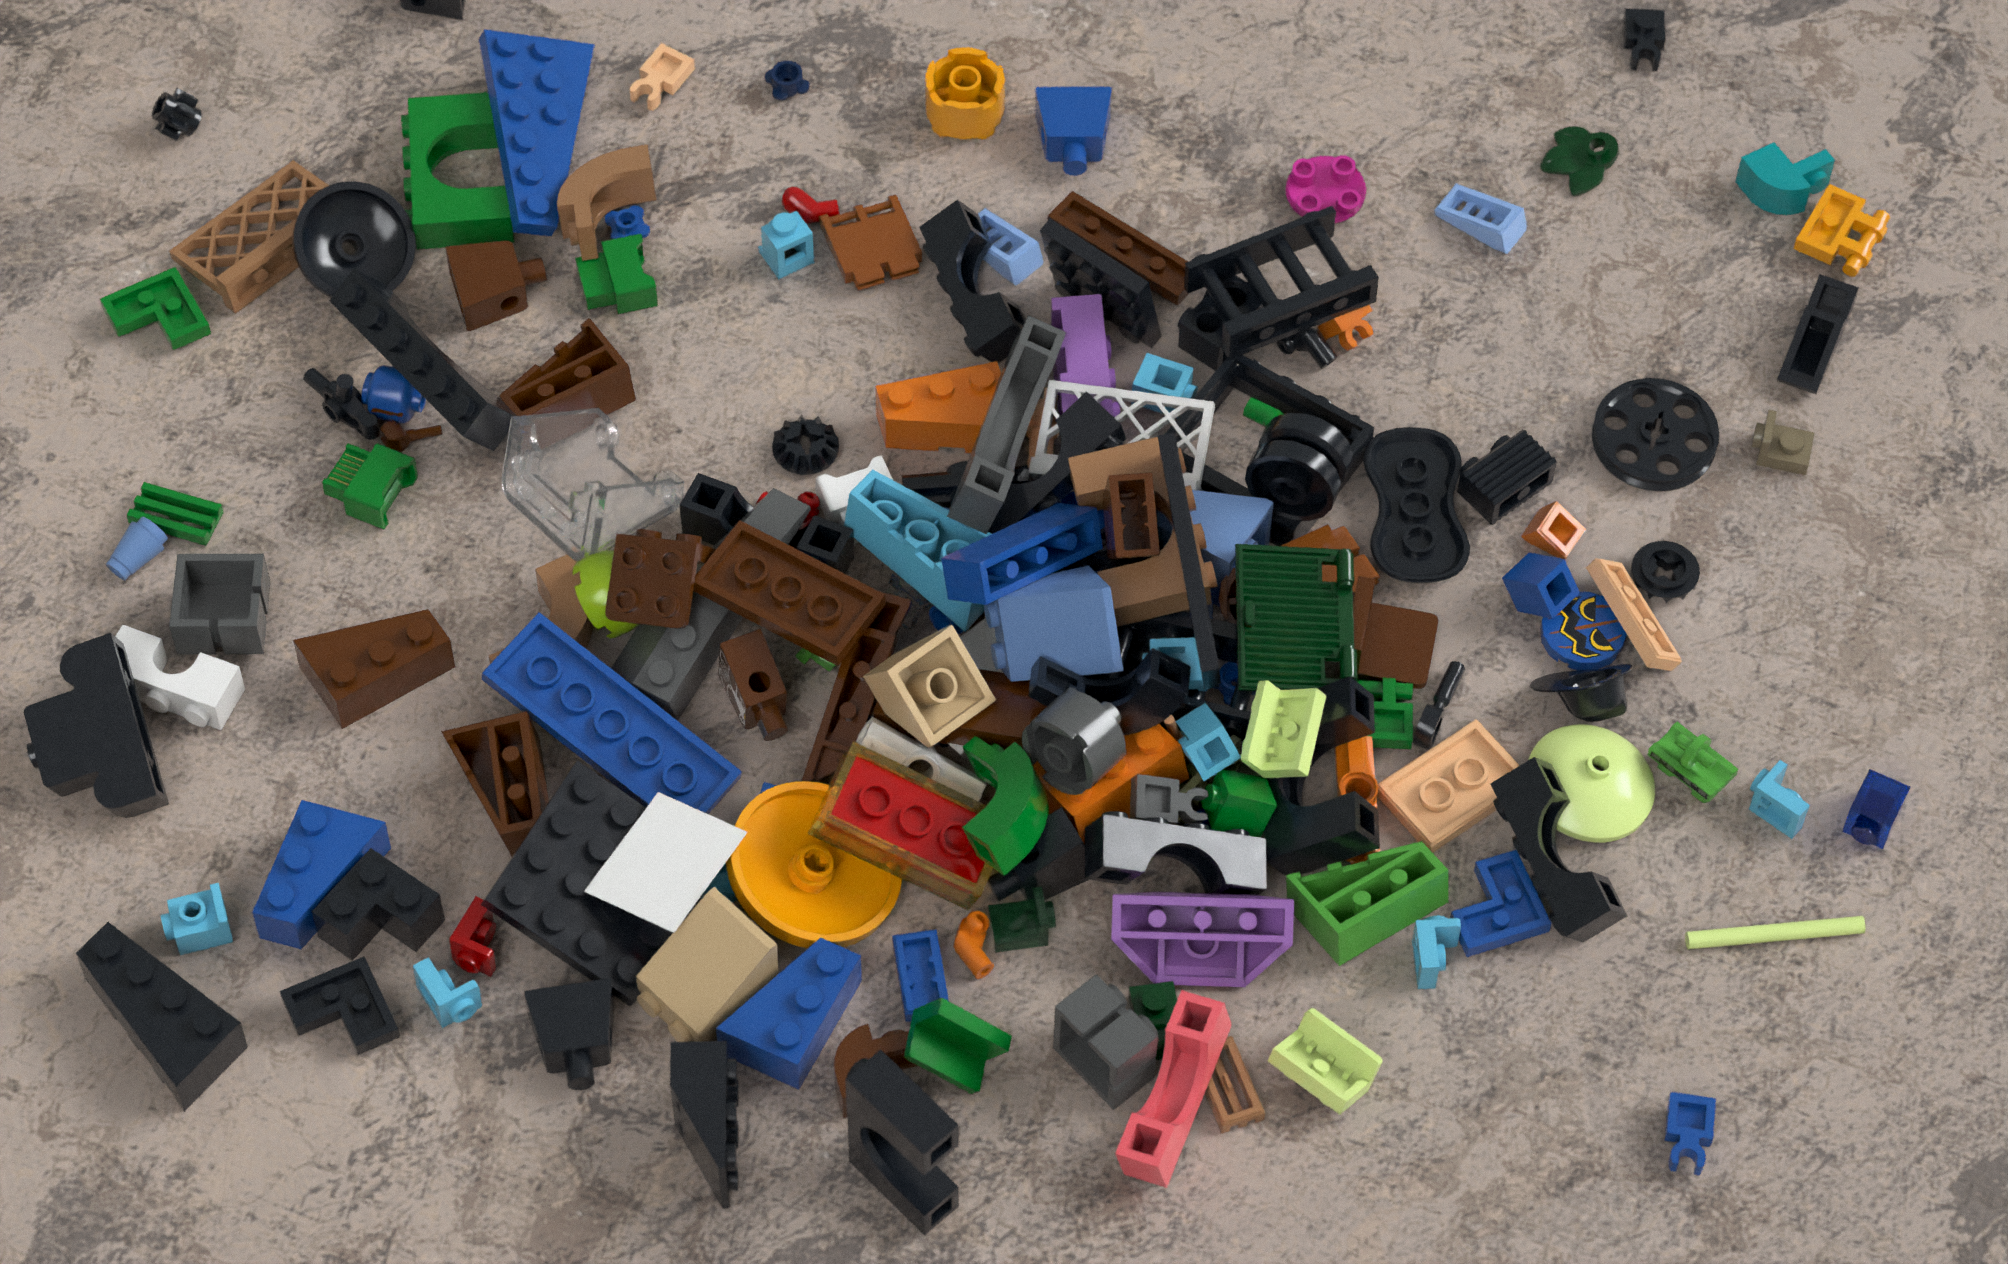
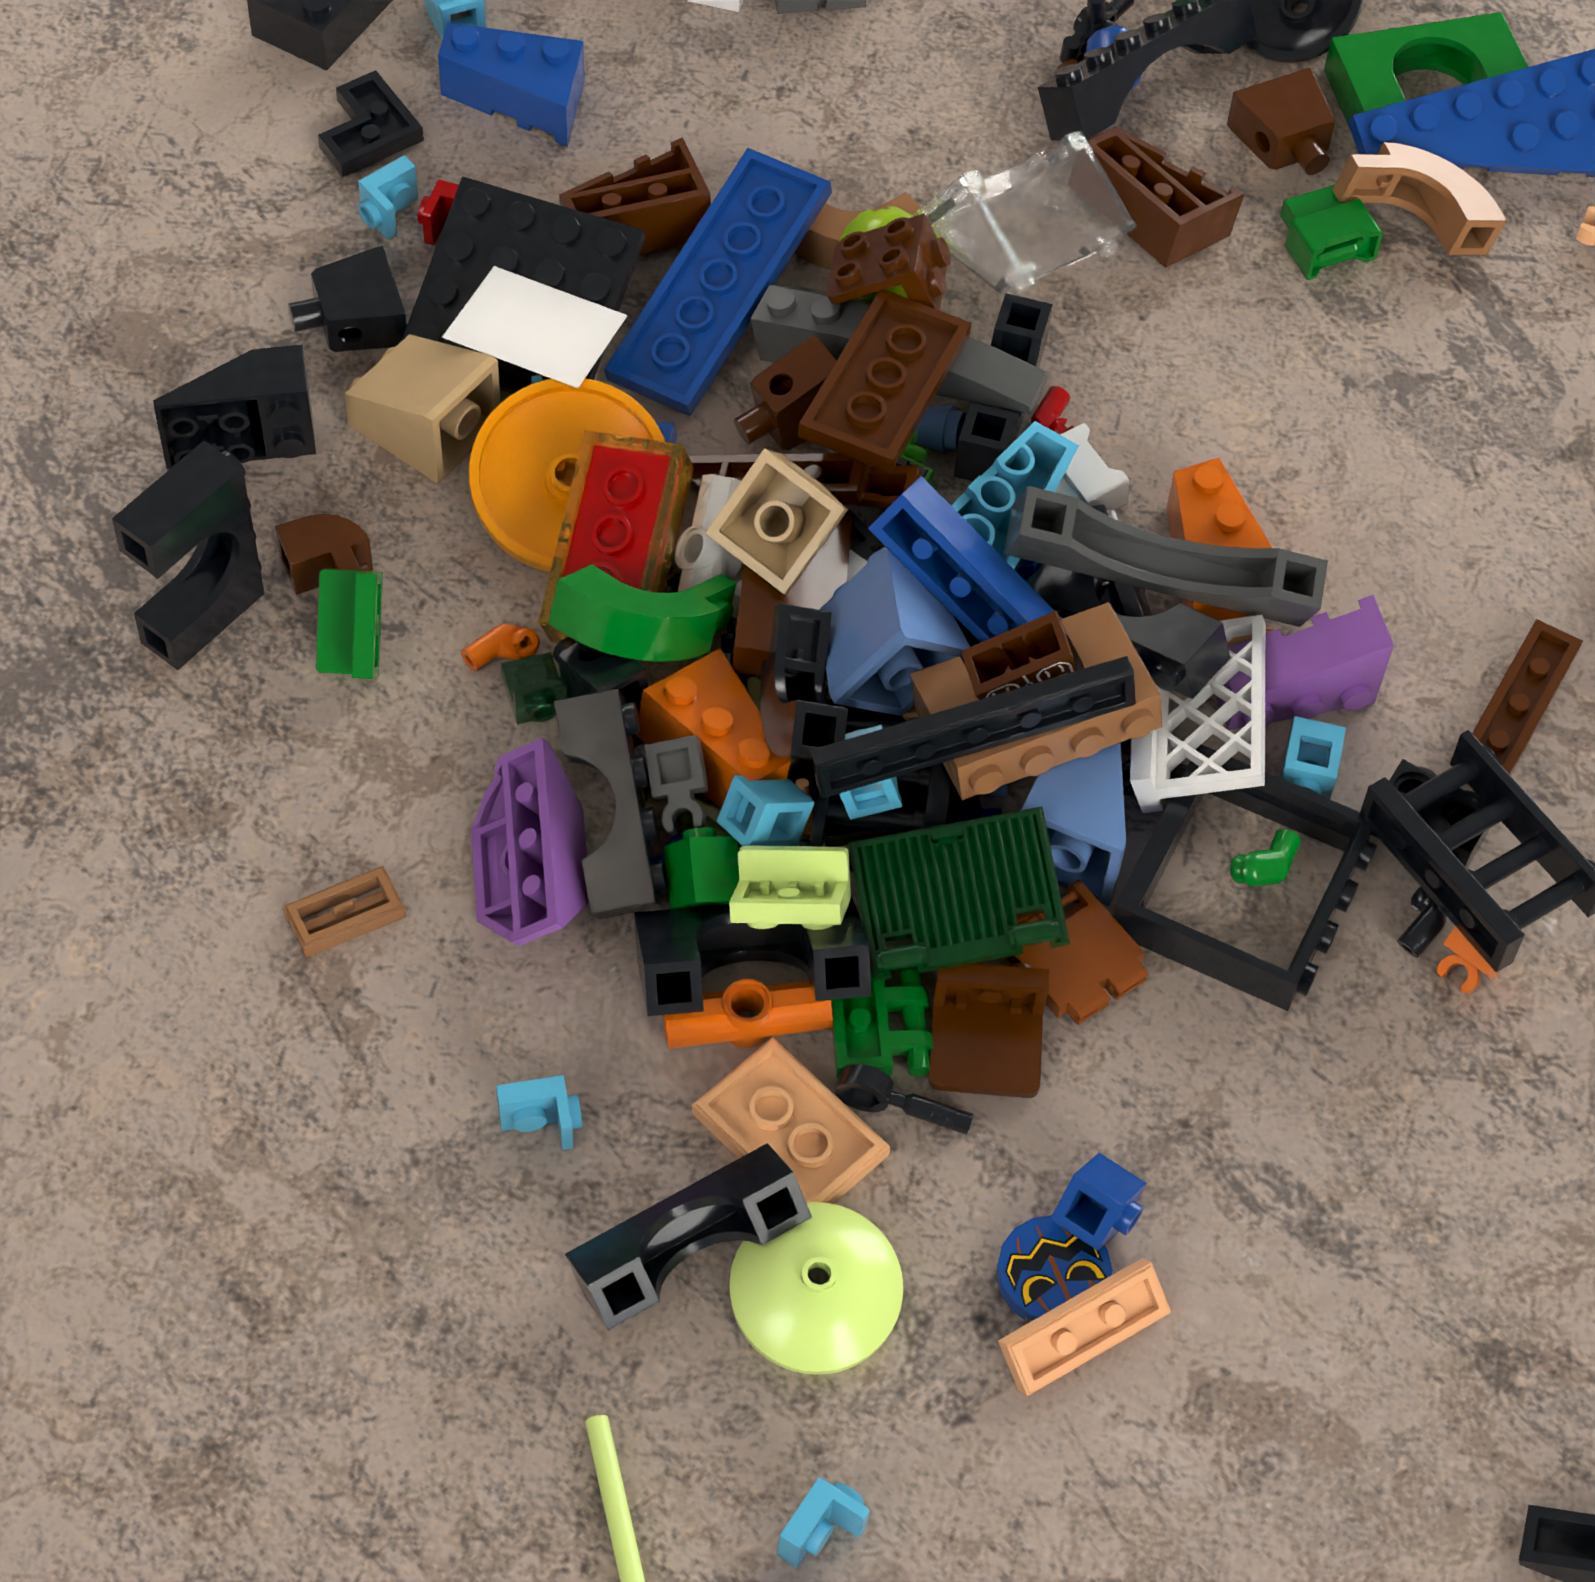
camera: 80 degrees right, 0 degrees up
(370, 481) = (1000, 63): green piece -> none
(374, 662) = (770, 89): reddish brown wedge -> none
(377, 898) = (482, 126): black brick -> none
(631, 216) = (1403, 234): blue plate -> none
(781, 234) = (1424, 360): medium azure brick -> none
(789, 451) = (1135, 439): black gear -> none
(794, 1013) = (388, 485): blue wedge -> none
(798, 200) = (1477, 394): red arm -> none
(873, 243) = (1443, 458): dark orange plate -> none
(919, 969) = (453, 598): blue plate -> none
(957, 246) = (1452, 530): black arch -> none
(1017, 262) = (1482, 589): light blue slope -> none
(1075, 741) = (718, 656): dark grey brick -> none
(1086, 270) = (1422, 655): black plate -> none
(1105, 1041) = (358, 783): dark grey piece -> none
(1157, 1004) = (431, 830): dark green plate -> none
(1190, 1054) = (249, 829): coral arch -> none
(1299, 466) = (1190, 876): black wheel -> none
(1327, 1061) = (366, 1001): yellowish green bracket -> none
(1368, 900) = (591, 1027): bright green wedge -> none
(1417, 522) = (1157, 1059): black plate -> none
(1506, 476) = (1271, 1158): black brick -> none
(1511, 908) = (600, 1194): blue plate -> none
(1554, 530) = (1205, 1231): orange slope -> none
(1589, 693) = (952, 1266): black piece -> none
(1668, 557) = (1171, 1345): black gear -> none
(1671, 441) = (1421, 1349): black wedge -> none
(1691, 1126) = (318, 1426): blue plate -> none
(1692, 762) = (855, 1403): bright green hips -> none
(1782, 446) = (1417, 1517): dark tan bracket -> none

